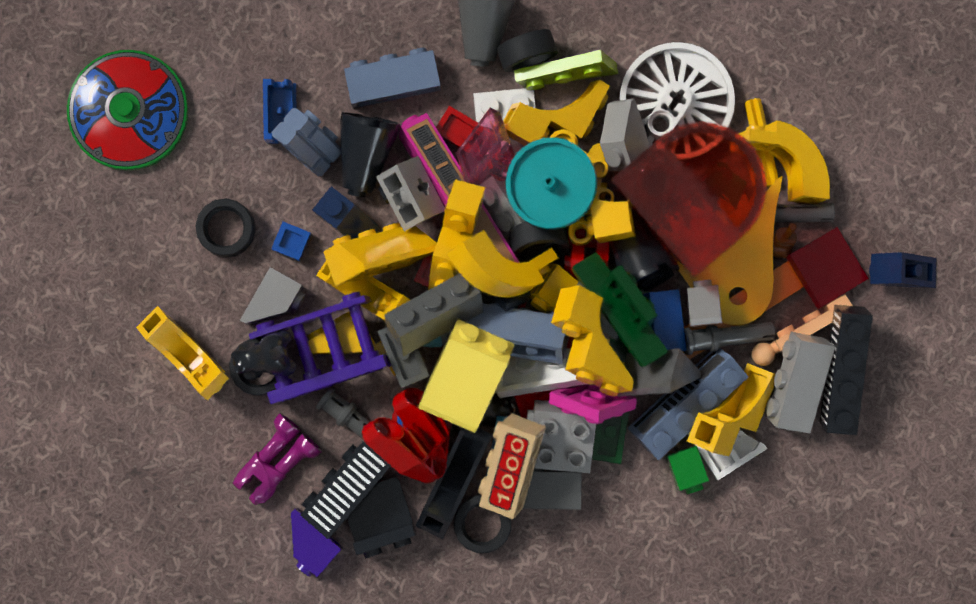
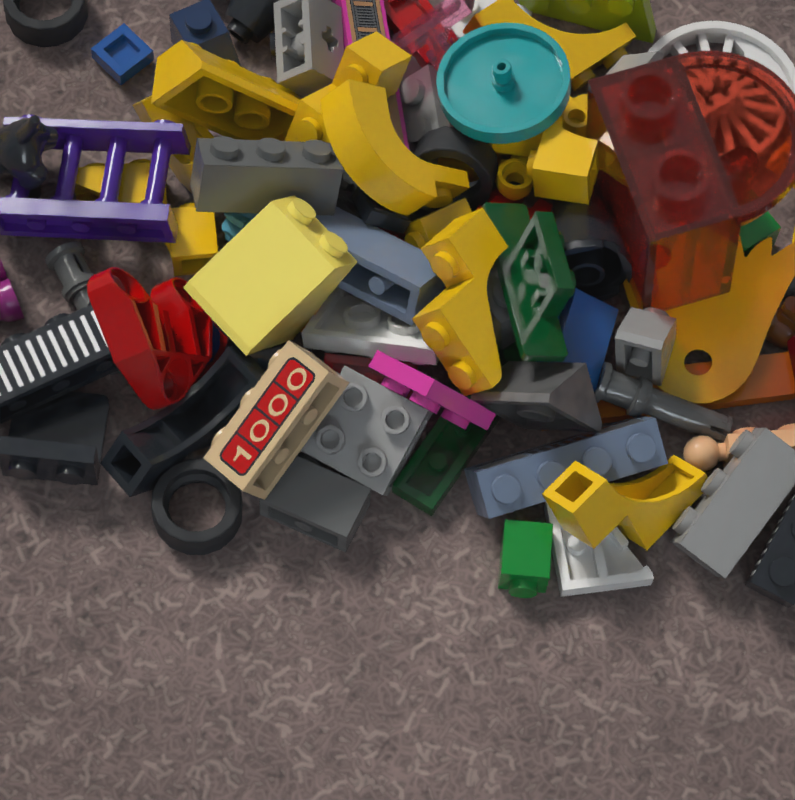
camera: 15 degrees right, 20 degrees down
(273, 298) = (62, 96): light grey slope -> none
(408, 368) = (196, 233): dark grey plate -> none

